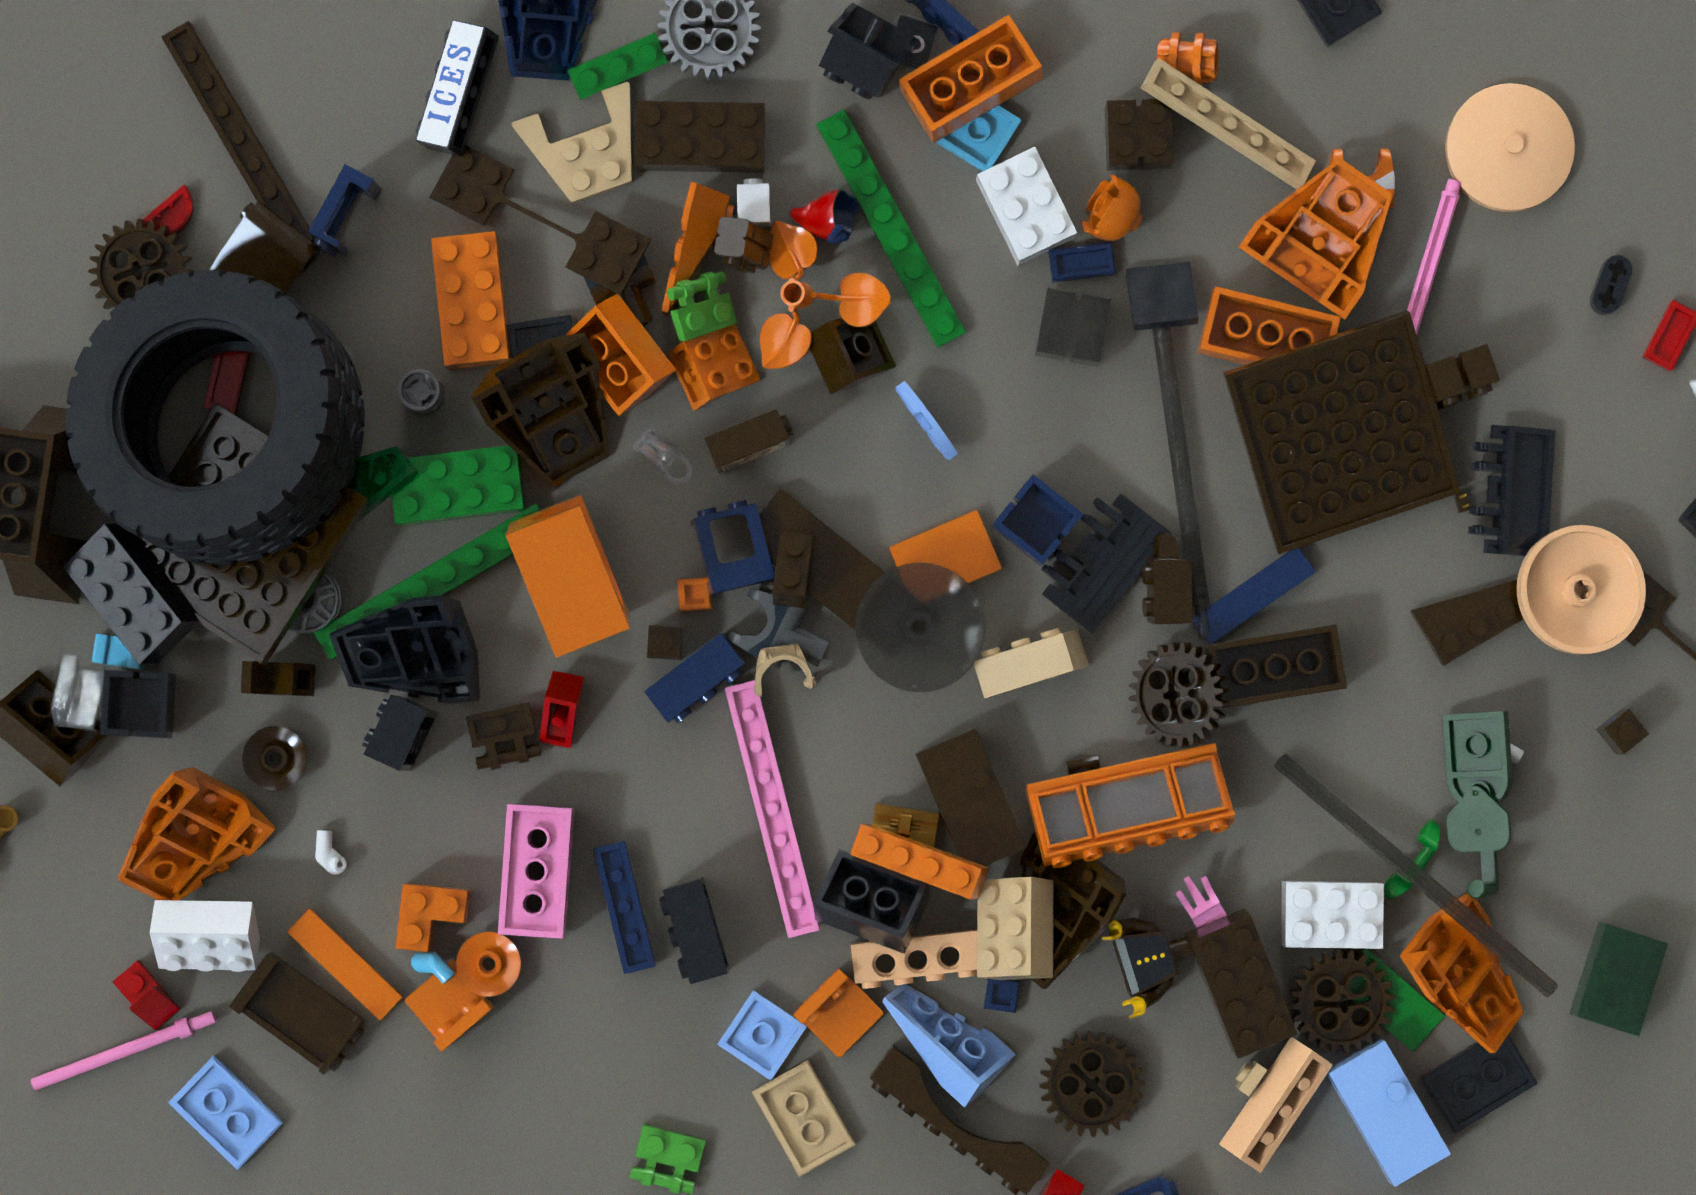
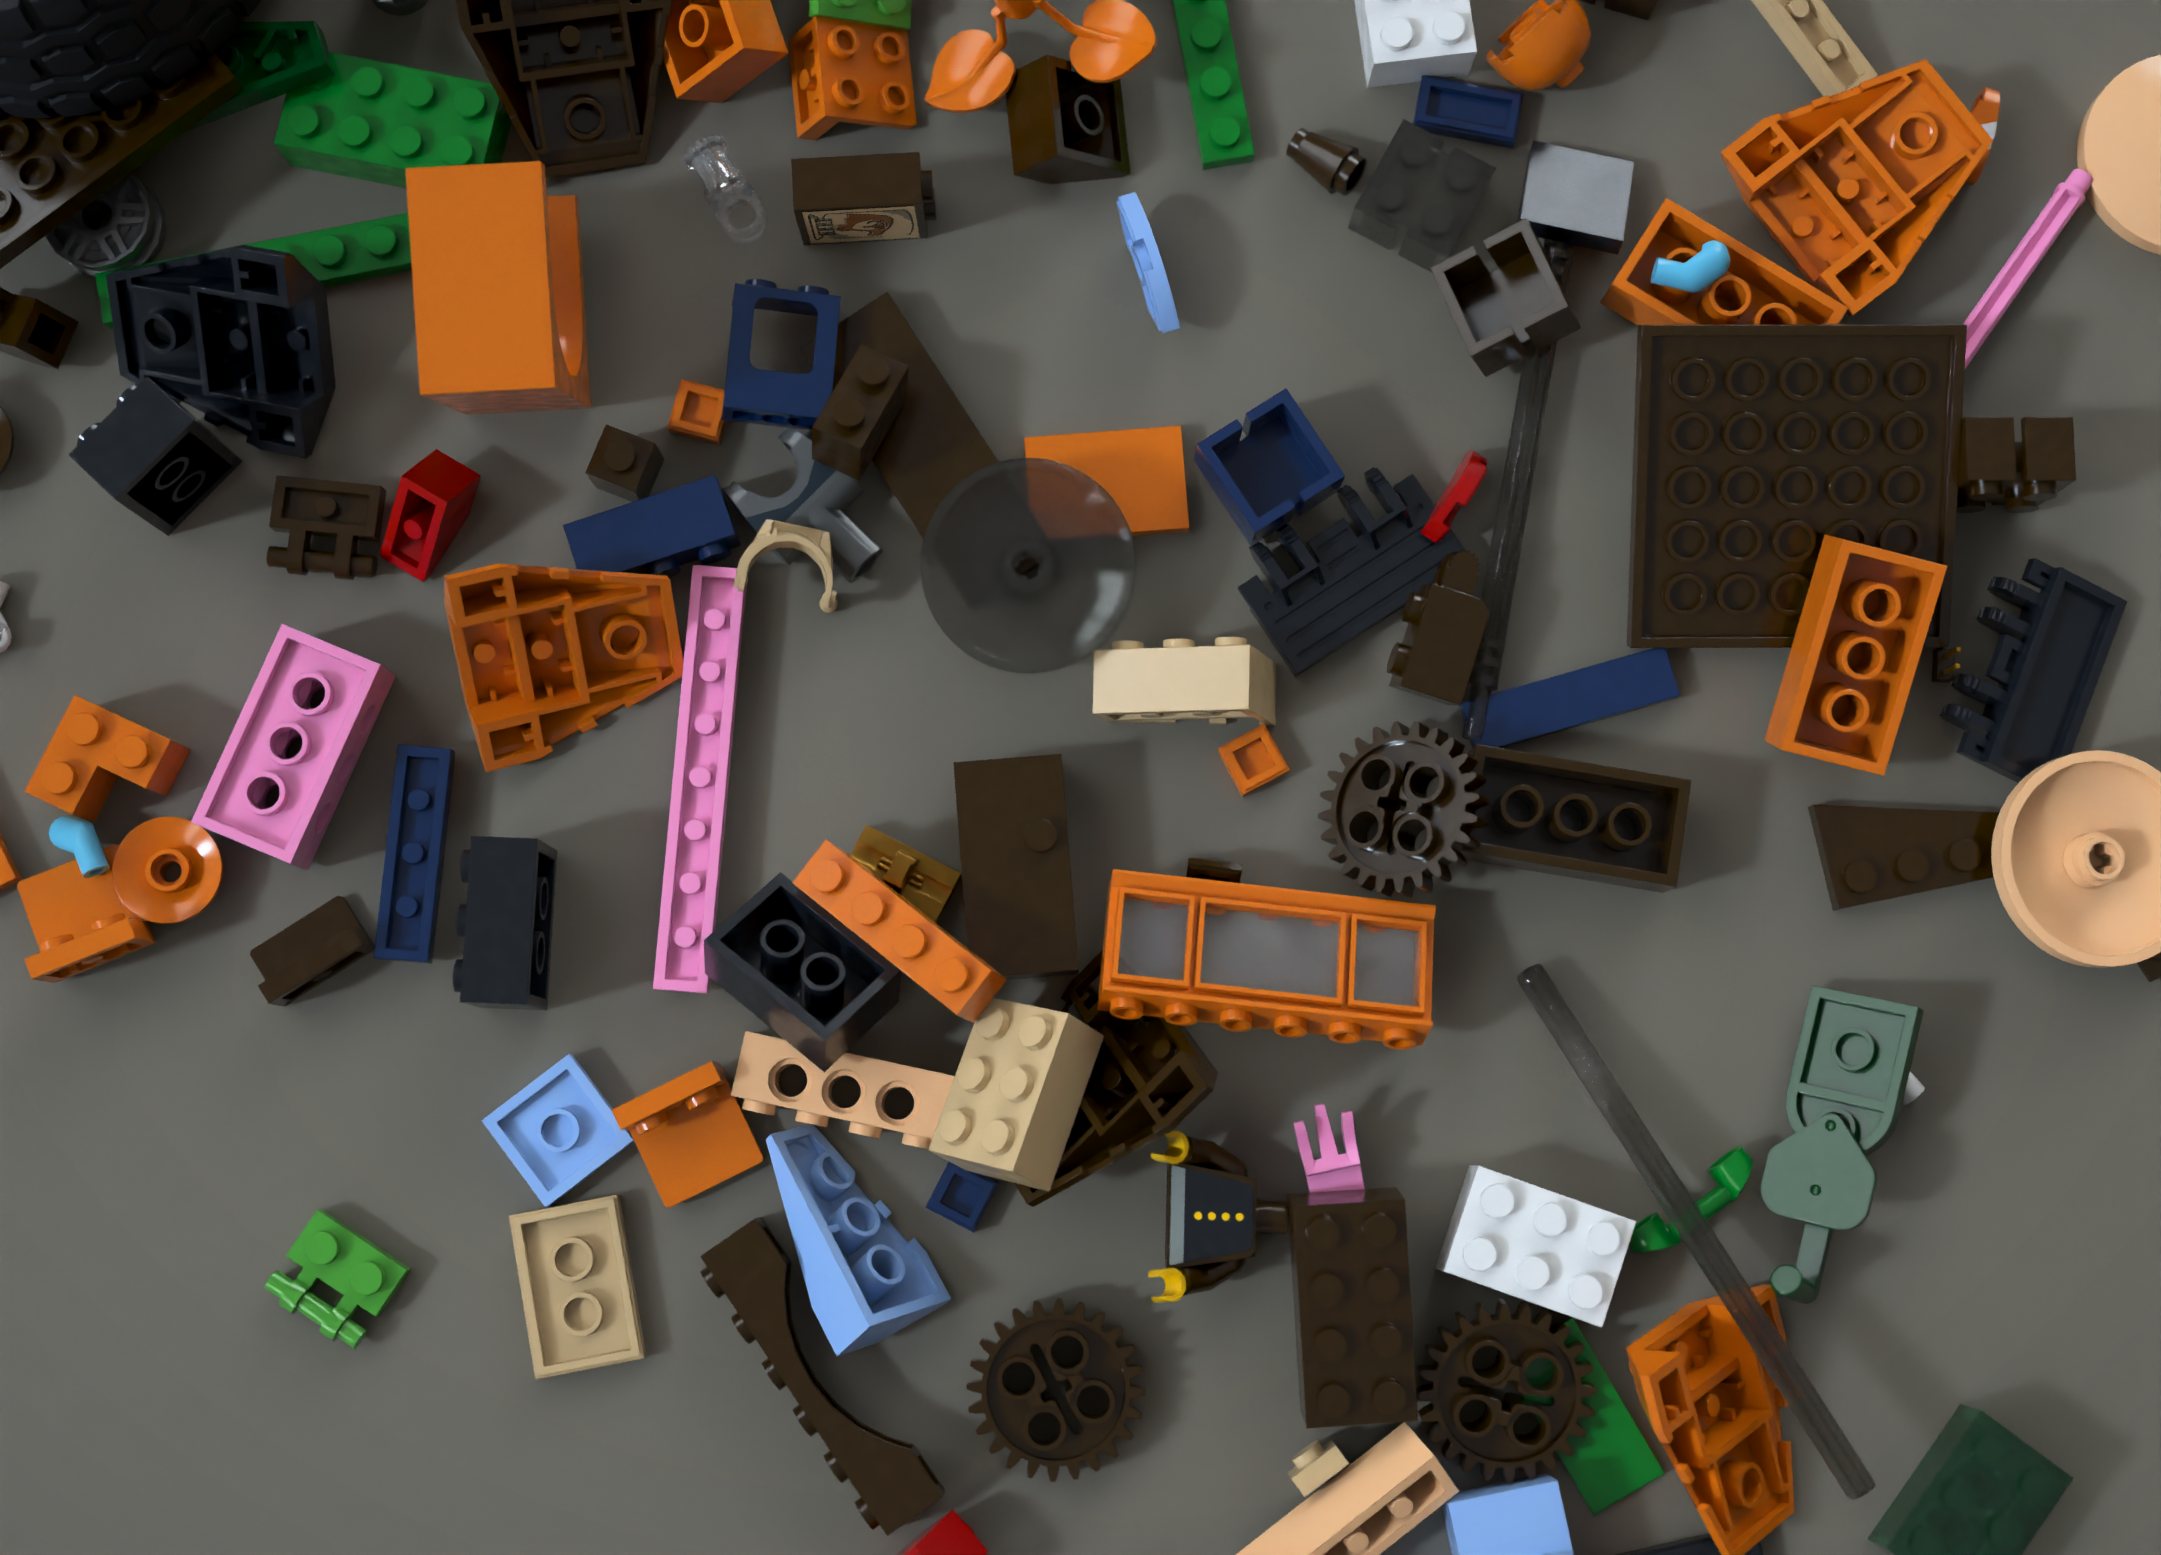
camera: 15 degrees right, 5 degrees down
(584, 981) = (310, 951): none -> dark brown panel
(666, 766) = (556, 651): none -> orange wedge
(1011, 322) = (1328, 161): none -> dark brown cone
(1083, 691) = (1253, 760): none -> orange tile
(1143, 377) = (1508, 306): none -> dark brown piece
(1150, 498) = (1457, 493): none -> red tile
(1246, 328) = (1697, 272): none -> medium azure arm
(1406, 520) = (1854, 654): none -> orange brick
(1622, 731) = (2096, 1108): dark brown brick -> none

